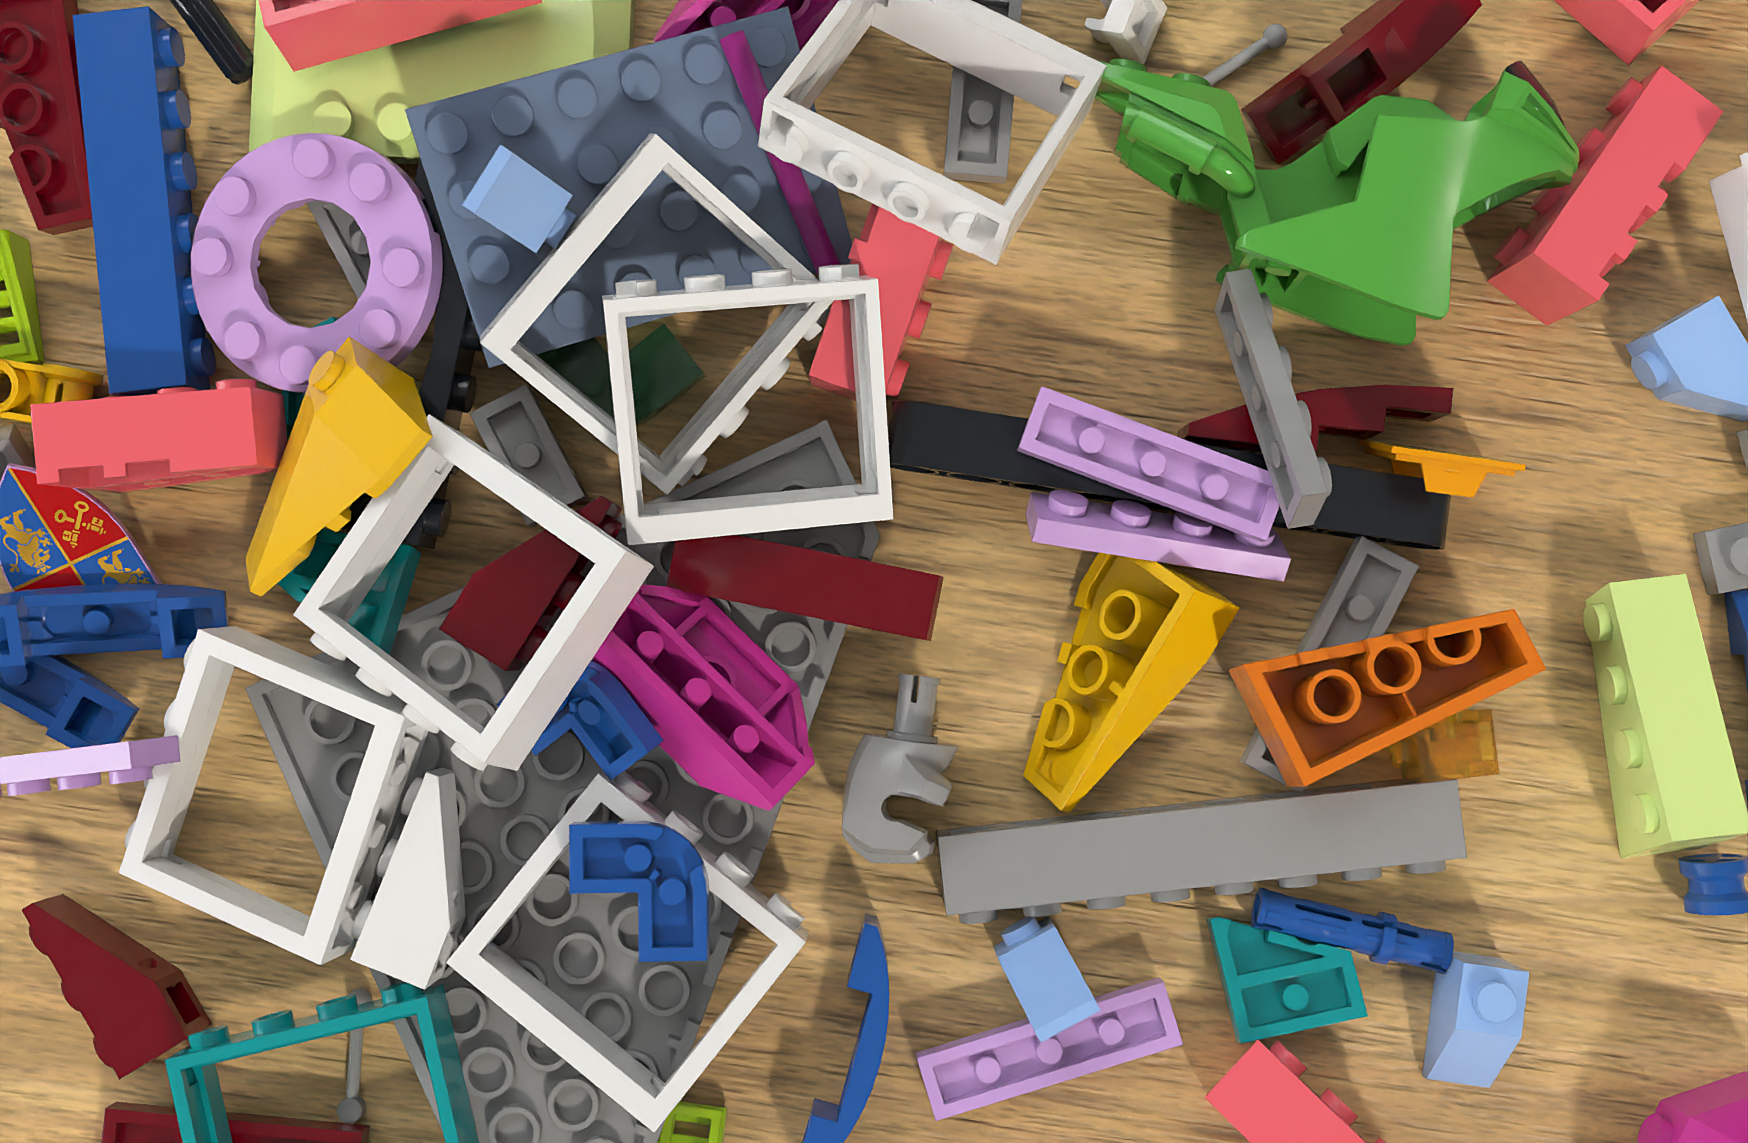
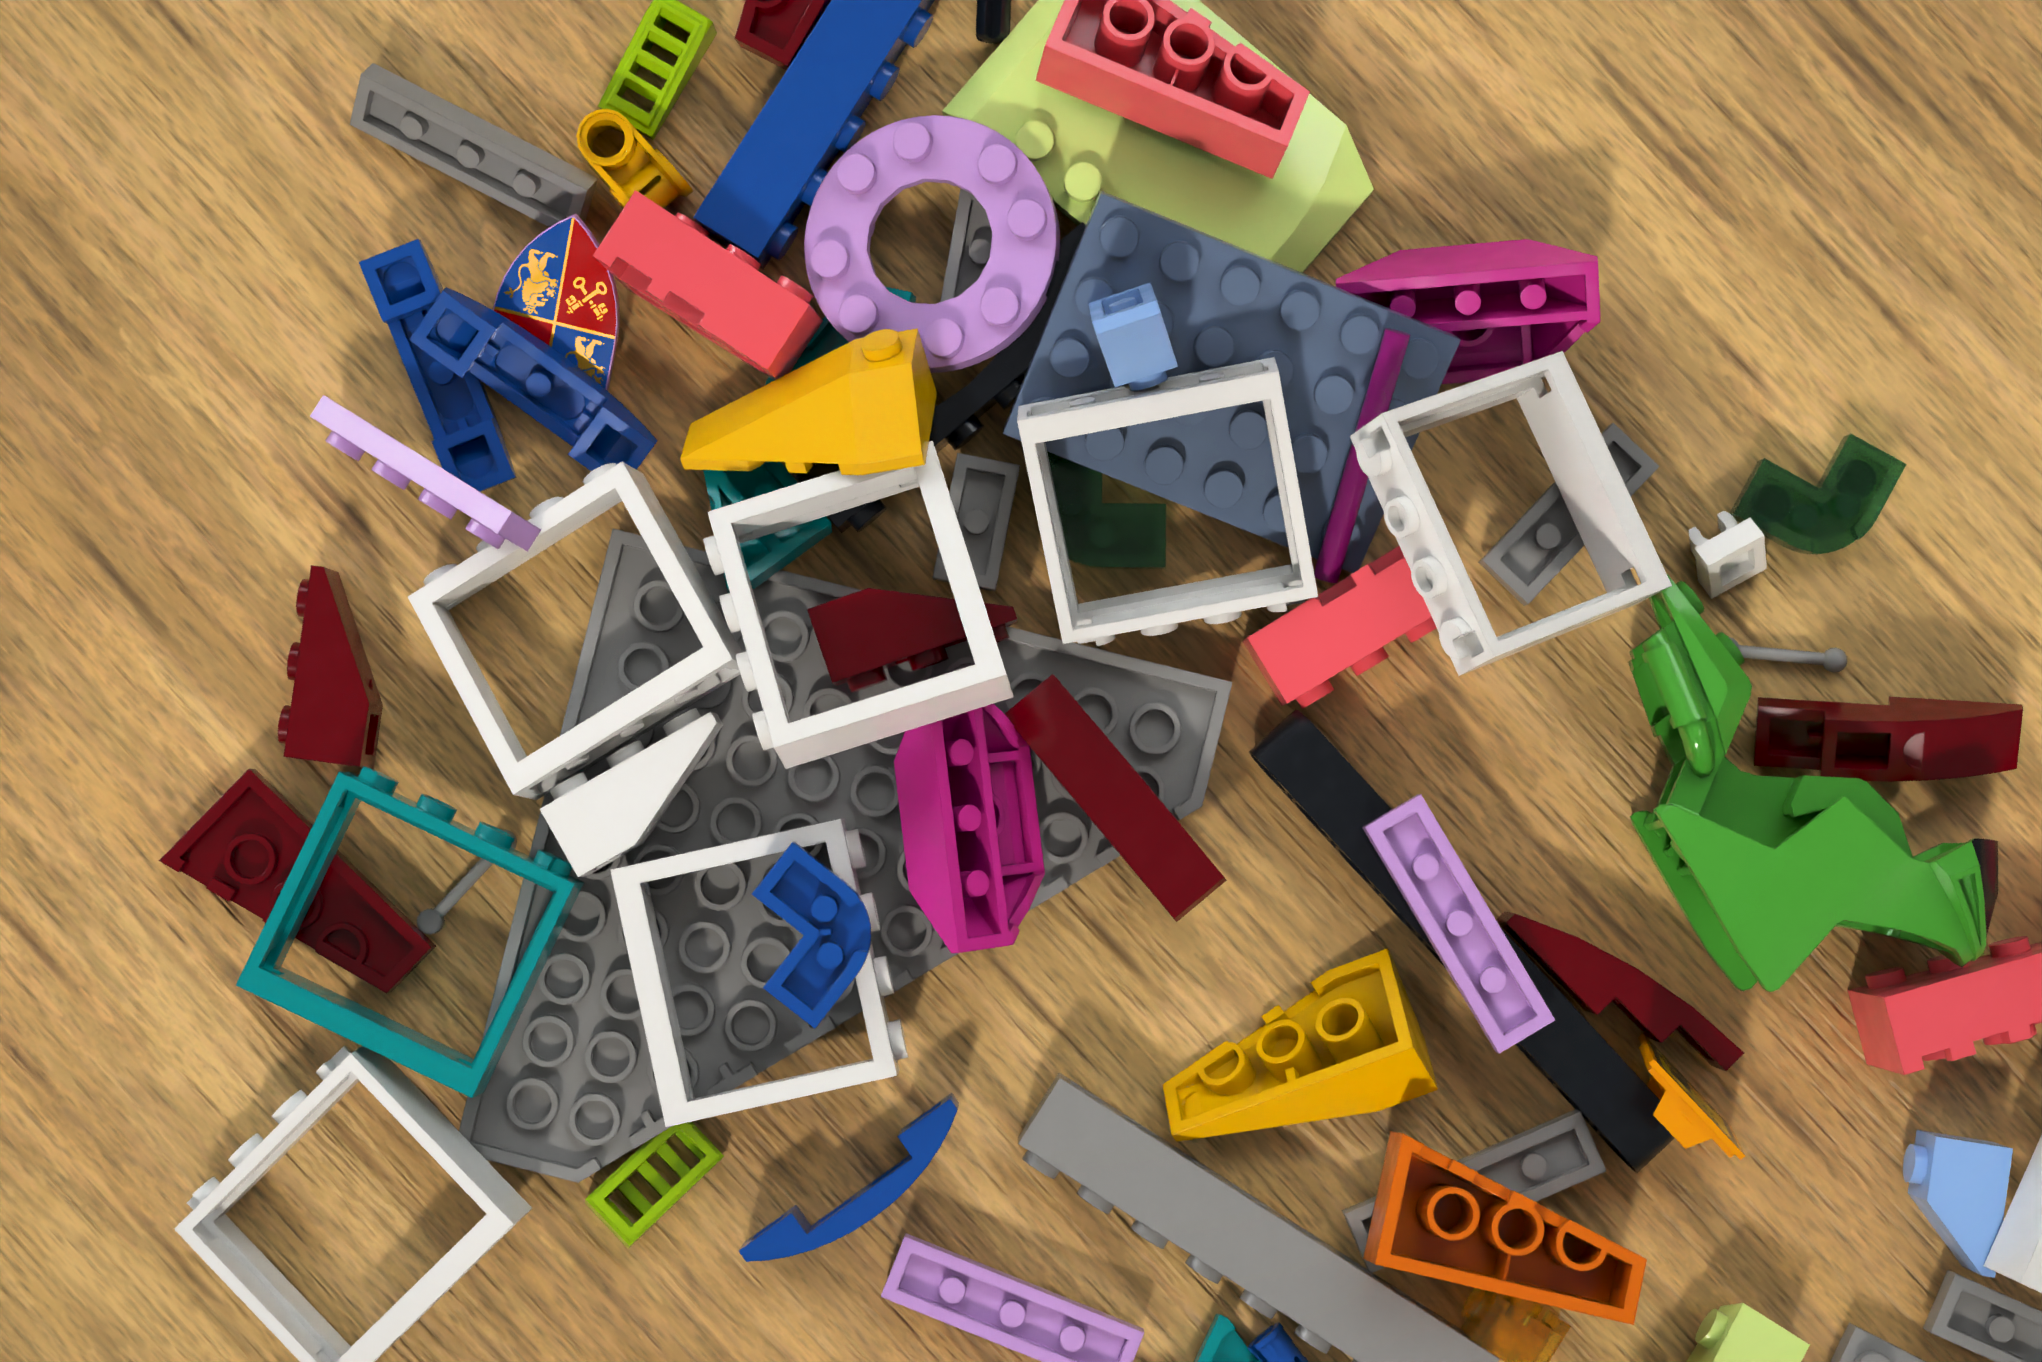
camera: 35 degrees right, 0 degrees up
(603, 720) = (877, 779): blue plate -> none
(765, 510) = (1131, 720): white window -> none
(902, 764) = (1077, 996): light grey piece -> none
(1044, 977) = (1056, 1250): light blue slope -> none
(1138, 533) = (1405, 966): lavender plate -> none
(1276, 415) = (1584, 966): light grey plate -> none

